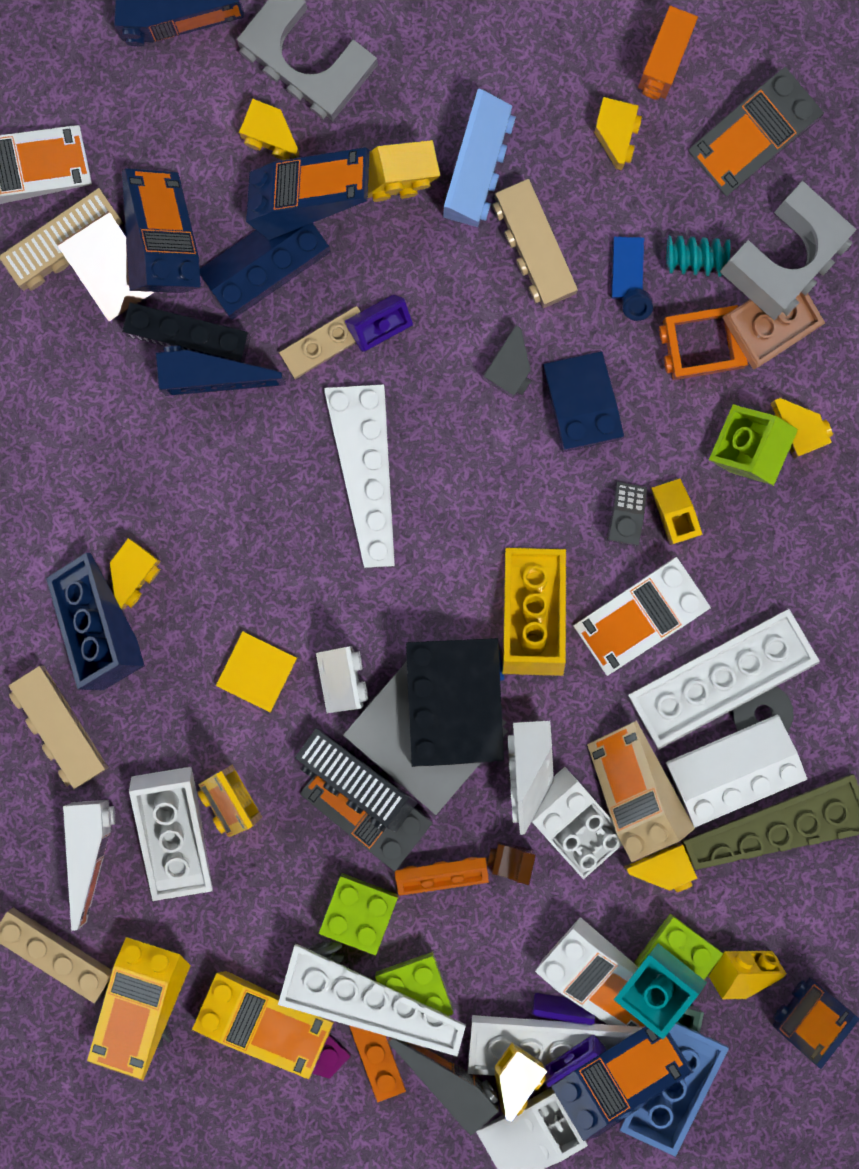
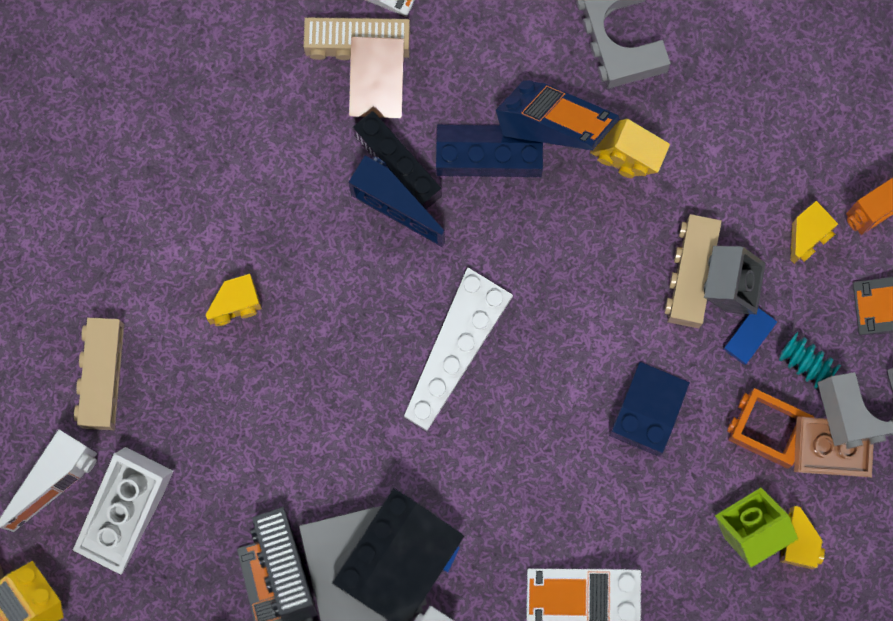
camera: 35 degrees right, 10 degrees down
(93, 626) = (178, 319): dark blue slope -> none
(158, 233) = (428, 79): dark blue slope -> none
(229, 801) = (182, 514): yellow slope -> none
(256, 671) = (271, 436): yellow tile -> none
(267, 128) = (557, 60): yellow slope -> none
(319, 345) = (492, 237): tan plate -> none
(340, 679) = (328, 484): white slope -> none
(379, 322) = (541, 249): dark purple slope -> none
(478, 158) = (693, 182): light blue slope -> none
(510, 366) = (613, 346): dark grey slope -> none
(534, 612) = (505, 537): yellow slope -> none
(579, 227) = (734, 279): none -> dark grey brick
(627, 514) = (625, 514): dark grey slope -> none
(637, 305) = (739, 366): dark blue tile -> none
(676, 512) = (663, 538): yellow slope -> none

